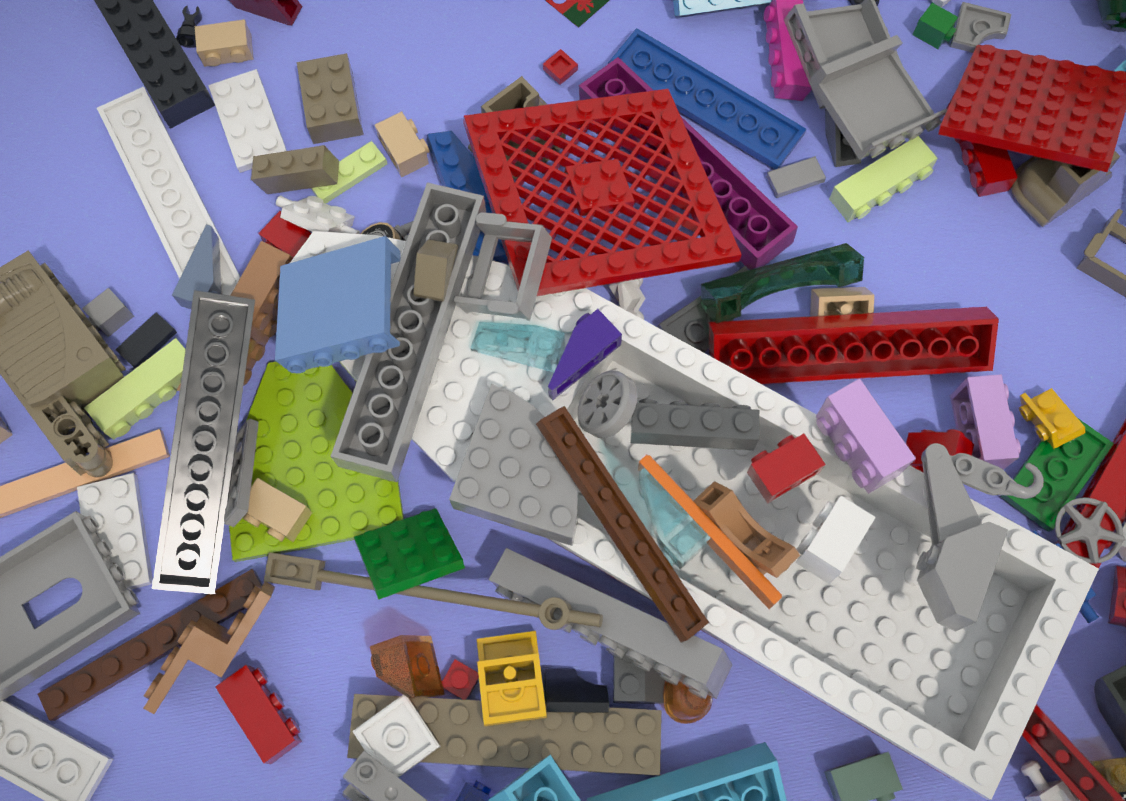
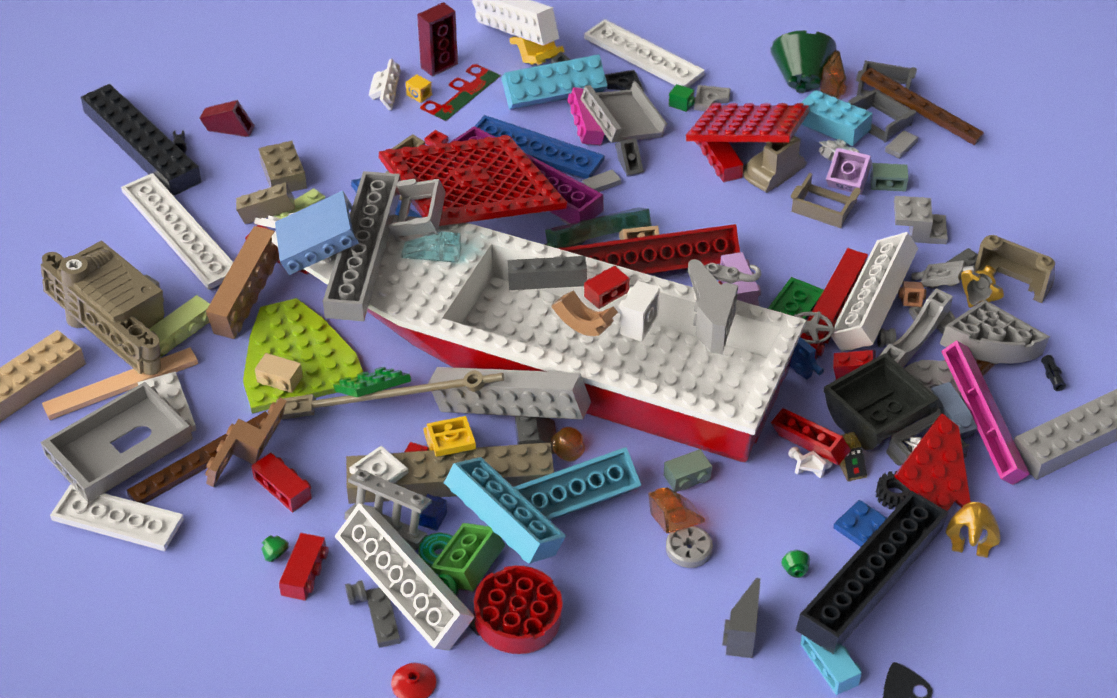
camera: 10 degrees left, 25 degrees down
(146, 340) = (175, 300): black tile -> none
(202, 269) = (208, 266): sand blue slope -> none
(203, 443) = (229, 333): brick -> none
(224, 43) = (204, 146): tan brick -> none
(241, 473) = (254, 351): light grey tile -> none
(246, 118) = (224, 184): white plate -> none
(402, 143) = (332, 182): tan brick -> none
(408, 665) = (376, 433): clear orange slope -> none
(434, 269) = (374, 208): dark tan slope -> none
(514, 472) = (440, 304): light grey brick -> none
(571, 693) = (495, 441): black tile -> none
(588, 345) = (475, 244): dark purple slope -> none
(607, 404) = (491, 265): light grey wheel -> none
(622, 524) = (509, 316): reddish brown plate -> none
(673, 527) = (542, 321): clear light blue slope -> none
(719, 541) = (563, 320): orange tile -> none
(863, 436) = (651, 262): lavender brick -> none
(874, 99) = (642, 128): light grey panel -> none
(883, 179) = (658, 176): yellowish green brick -> none
(1051, 418) = (781, 279): yellow bracket -> none

